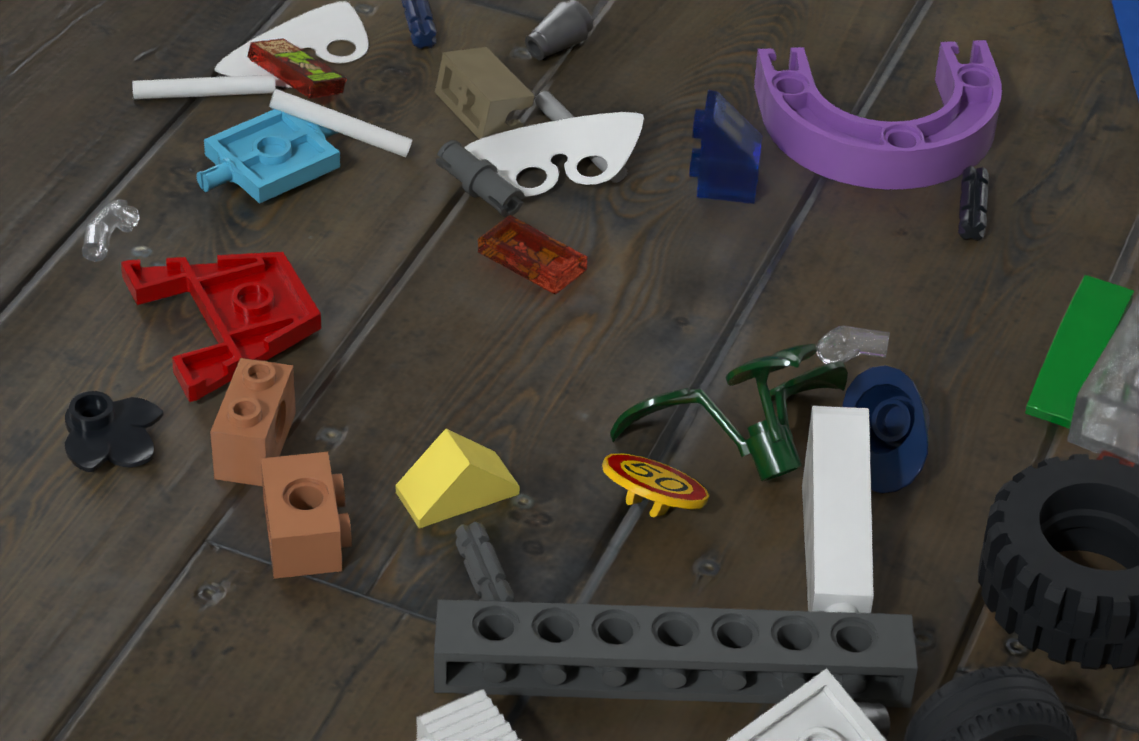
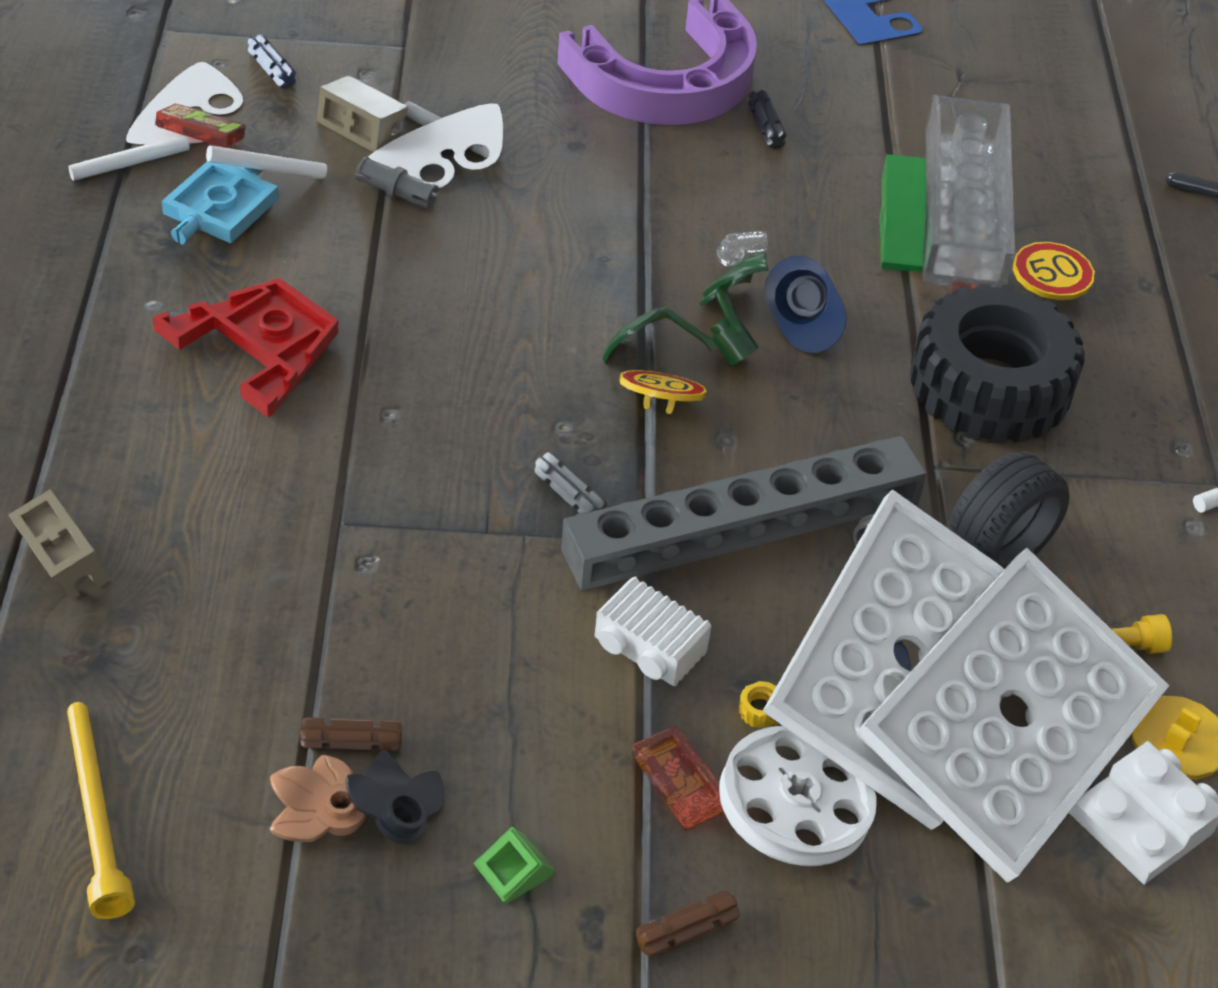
camera: 25 degrees left, 5 degrees up
(102, 225) = (113, 292): clear arm -> none
(109, 430) = (218, 457): black plate -> none
(252, 420) = (336, 420): nougat brick -> none
(303, 514) = (414, 482): nougat brick -> none
(454, 479) = (509, 426): light yellow slope -> none
(532, 254) = (467, 233): clear red tile -> none
(560, 29) = (392, 49): flat silver cone -> none
(728, 154) = (580, 121): clear blue slope -> none
(838, 511) = (809, 375): white slope -> none

